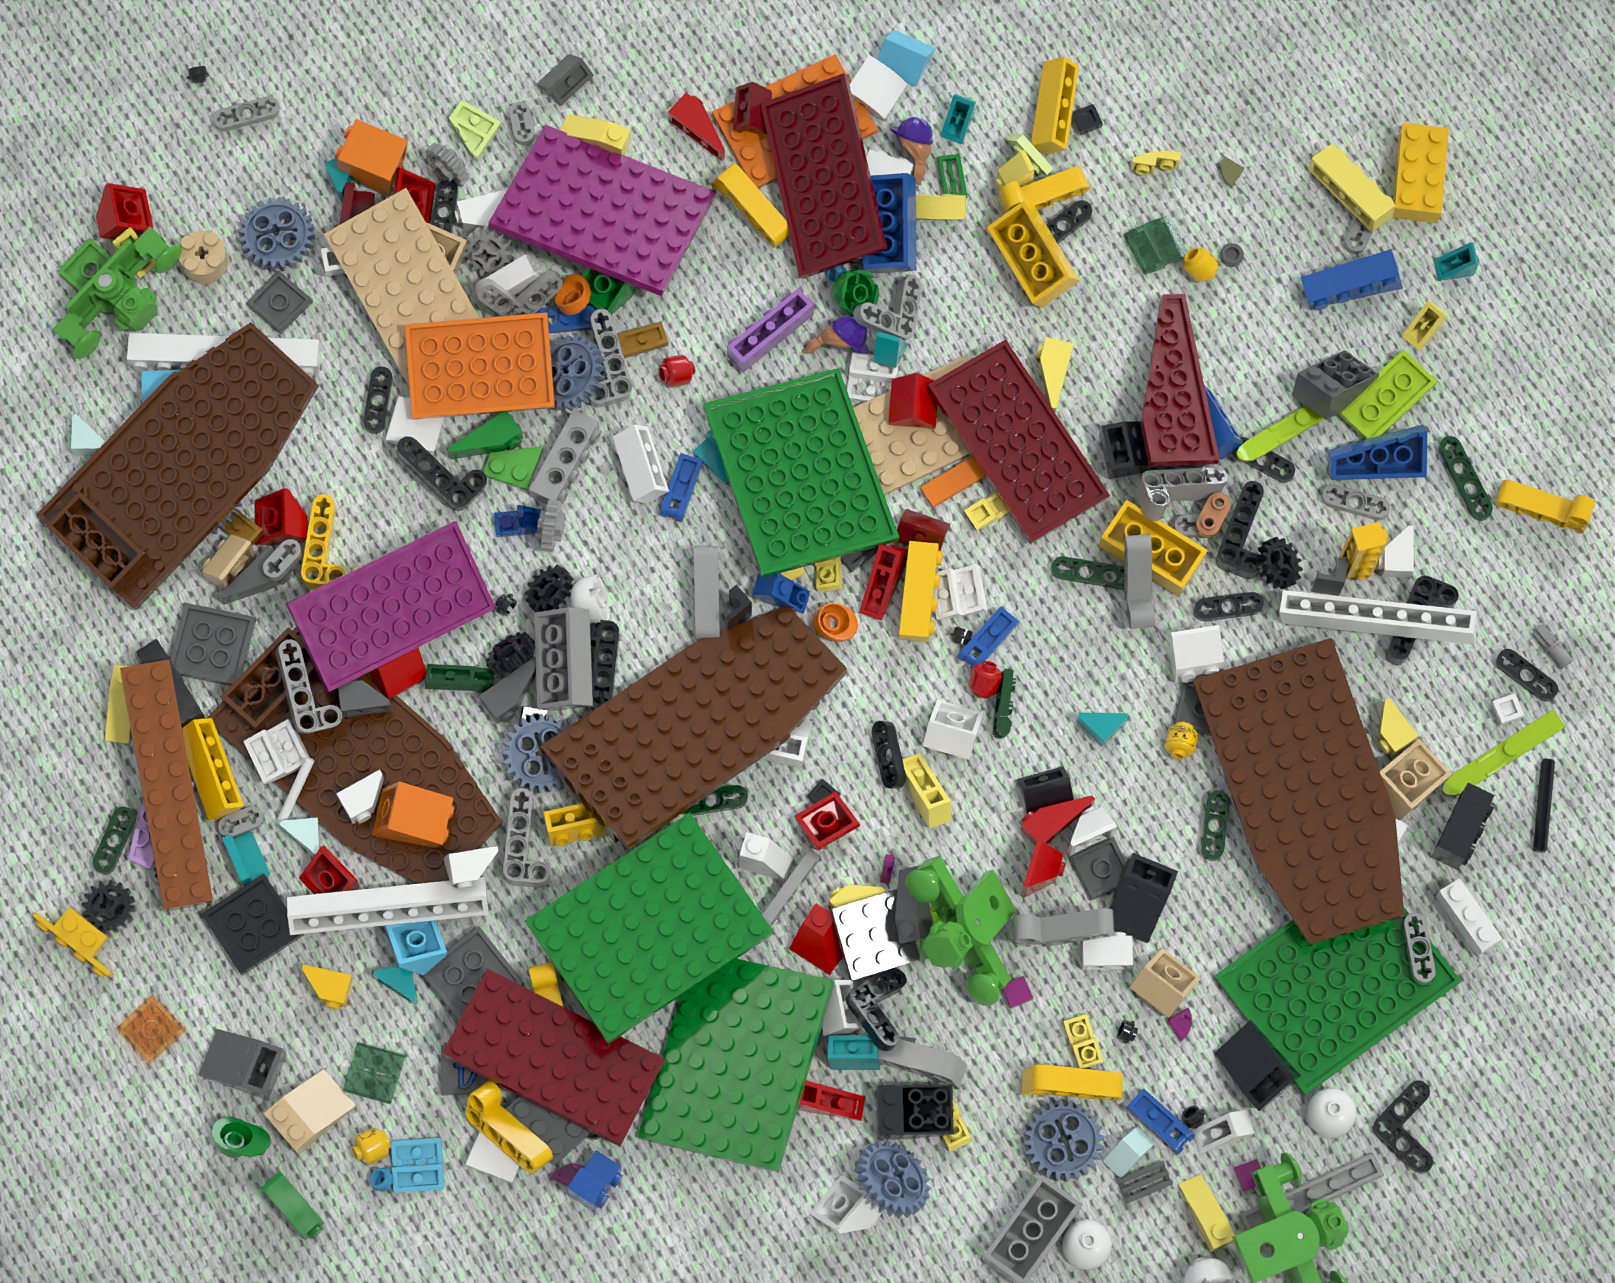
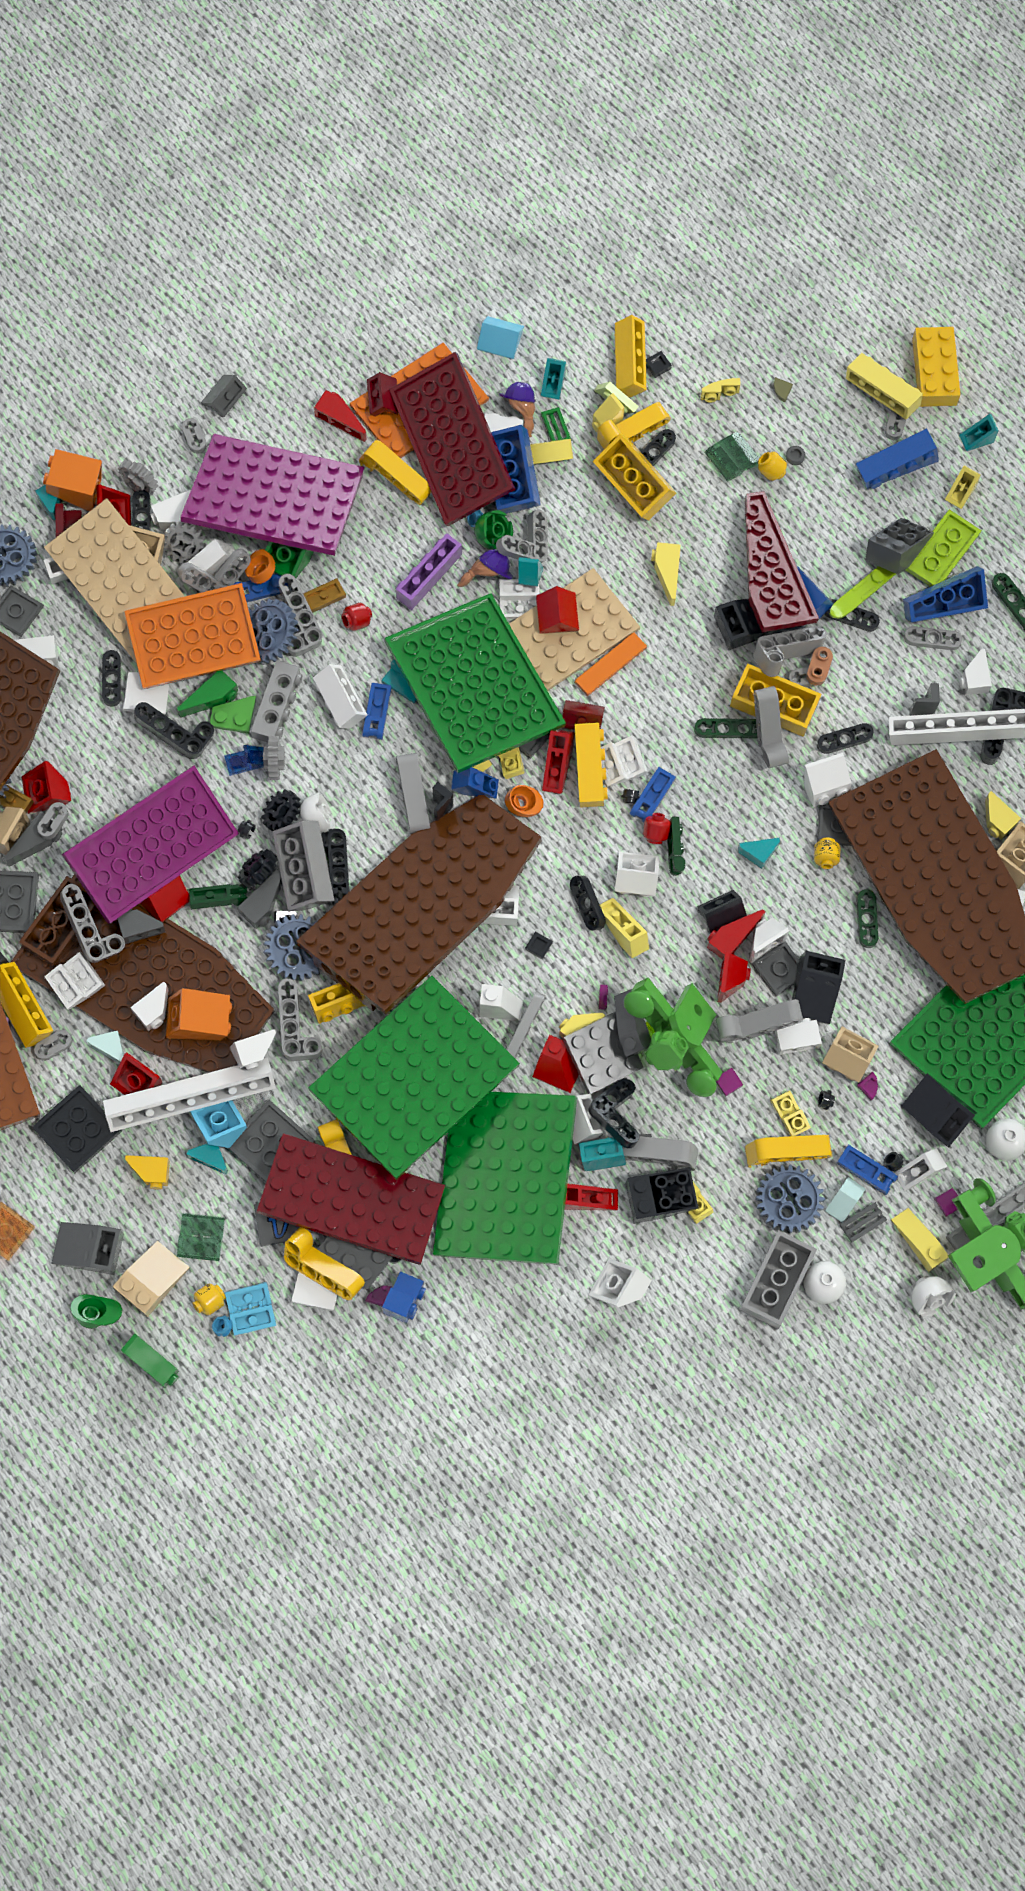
camera: 10 degrees left, 0 degrees up
(246, 857) = (62, 1073): teal panel -> none
(295, 790) = (95, 1010): white bar -> none
(320, 542) = (82, 802): yellow beam -> none
(474, 127) = (155, 445): yellowish green wing -> none
(598, 132) = (262, 433): light yellow slope -> none
(721, 807) = (463, 964): dark green beam -> none
(826, 821) = (545, 966): red slope -> none
(877, 87) = (482, 363): white slope -> none
(892, 1179) = (654, 1254): sand blue gear -> none
(986, 511) = (636, 689): light yellow slope -> none
(1018, 441) = (649, 630): dark red plate -> none
(1241, 527) = (845, 672): black beam -> none
(1279, 563) = (880, 696): black gear -> none
(1364, 550) = (951, 672): yellow brick -> none

